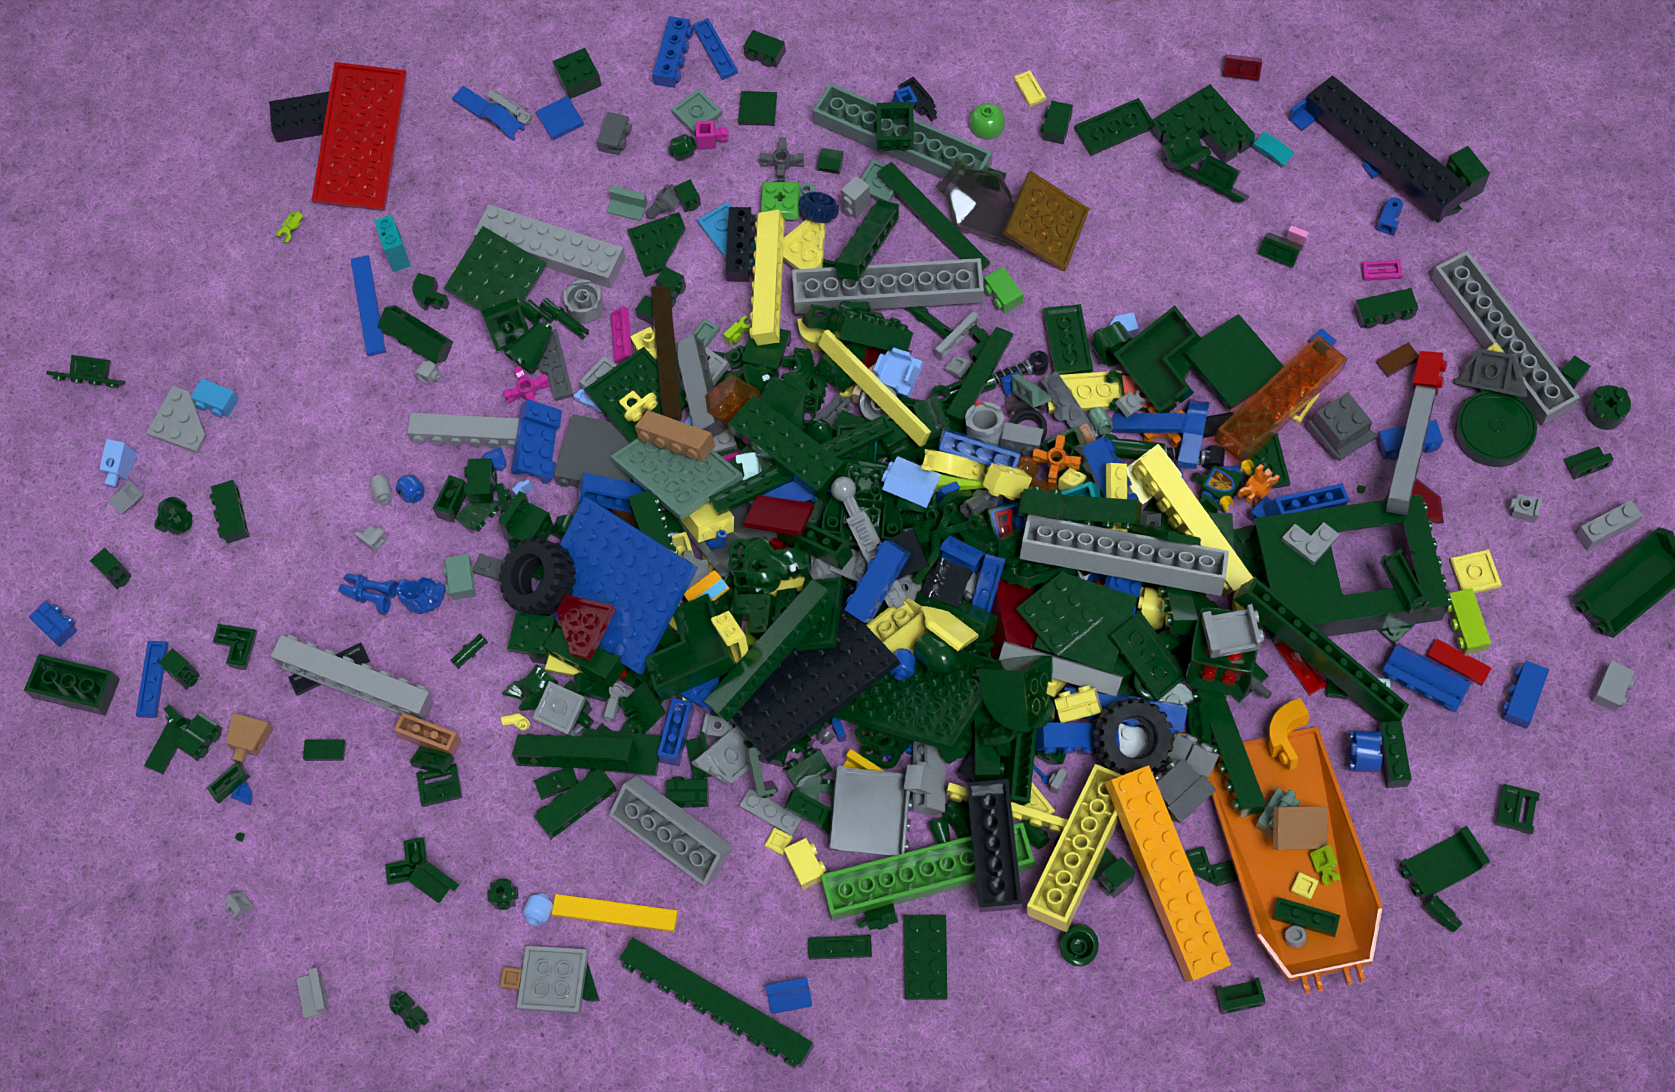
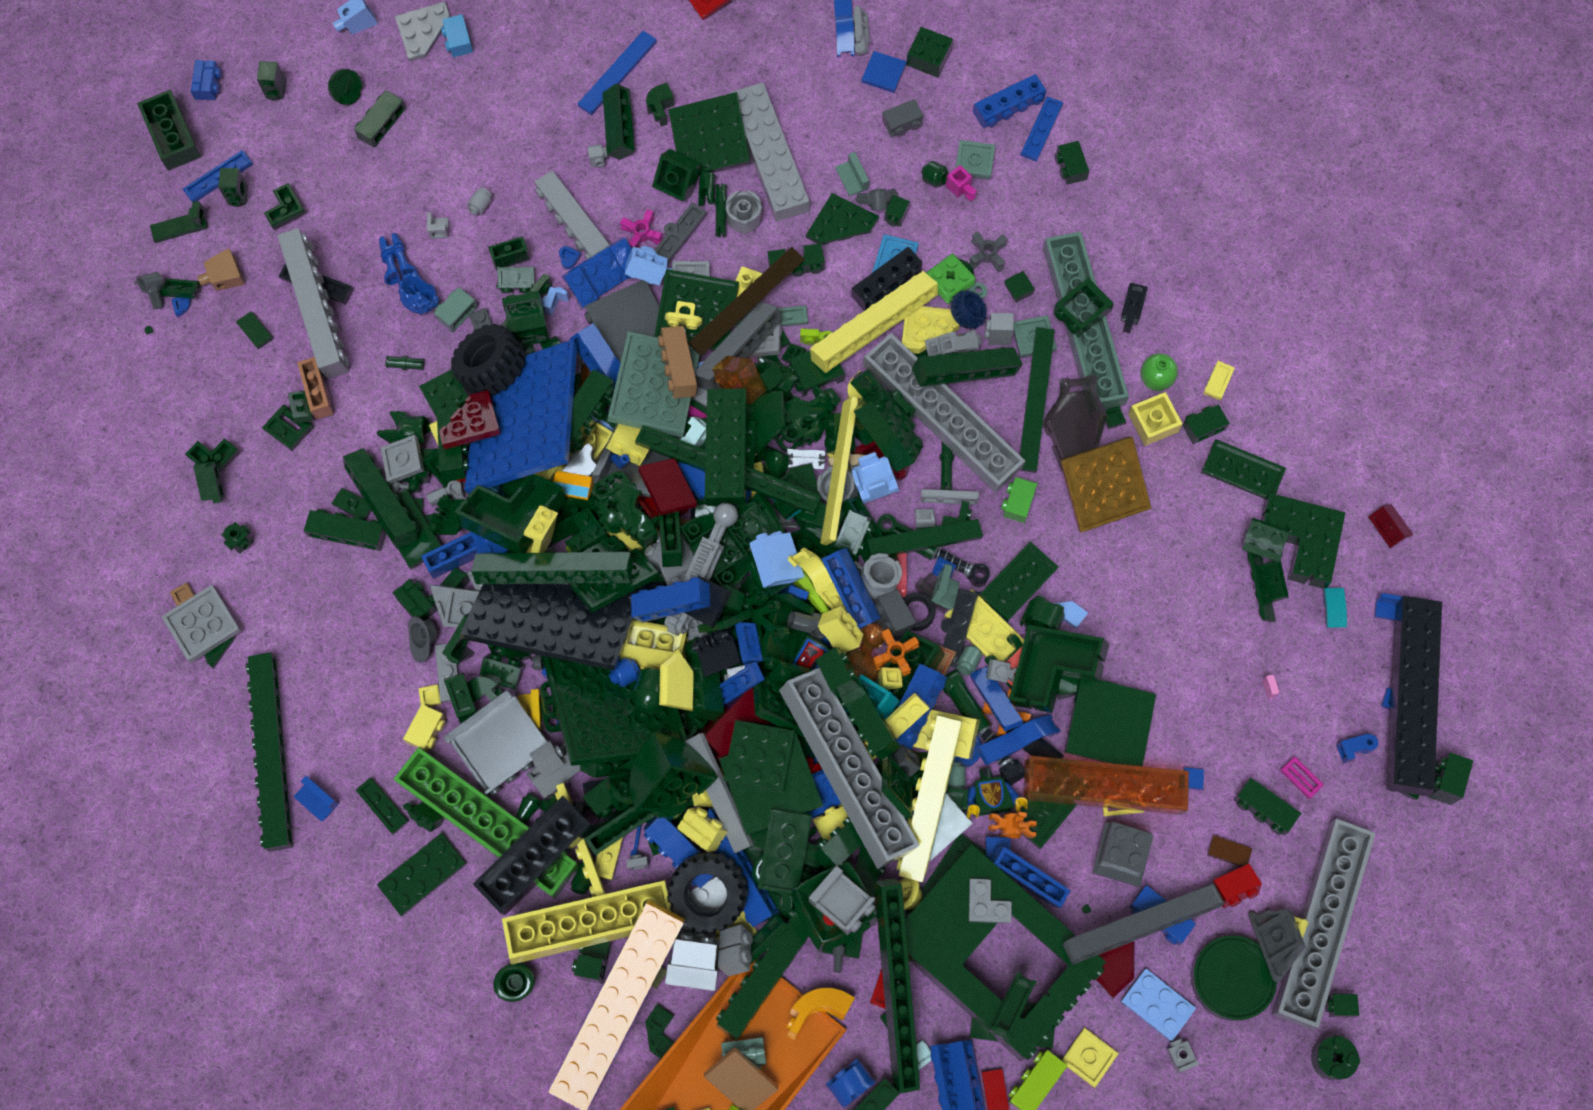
camera: 45 degrees right, 5 degrees up
(125, 497) = (335, 44): light grey panel -> none
(198, 737) = (197, 241): dark green brick -> none
(203, 801) = (151, 284): none -> dark grey axle
(239, 904) = (97, 370): light grey tile -> none
(312, 994) = (71, 473): light grey panel -> none
(392, 243) = (674, 47): teal window -> none
(401, 1005) = (104, 553): dark green hinge -> none
(410, 488) = (496, 220): blue head -> none
(480, 480) = (536, 260): dark green brick -> none
(517, 720) = (378, 441): light yellow arm -> none
(530, 347) = (671, 206): dark green cone -> none
(537, 909) = (245, 570): light blue head -> none
(566, 401) = (646, 265): none -> light blue brick
(615, 913) = (285, 626): yellow tile -> none
(621, 334) = (741, 259): dark pink tile -> none
(670, 831) = (371, 613): light grey brick -> none
(725, 811) = (421, 636): none -> dark grey piece
(757, 108) = (1018, 199): dark green tile -> none
(839, 237) = (952, 343): none -> light grey hips
(904, 95) = (1118, 295): blue brick -> none
(1023, 150) = (1155, 419): none -> light yellow brick
(1280, 249) = (1248, 682): dark green panel -> none
(1473, 495) = (1158, 1005): none -> light blue plate
(1588, 462) = (1270, 1077): dark green panel -> none

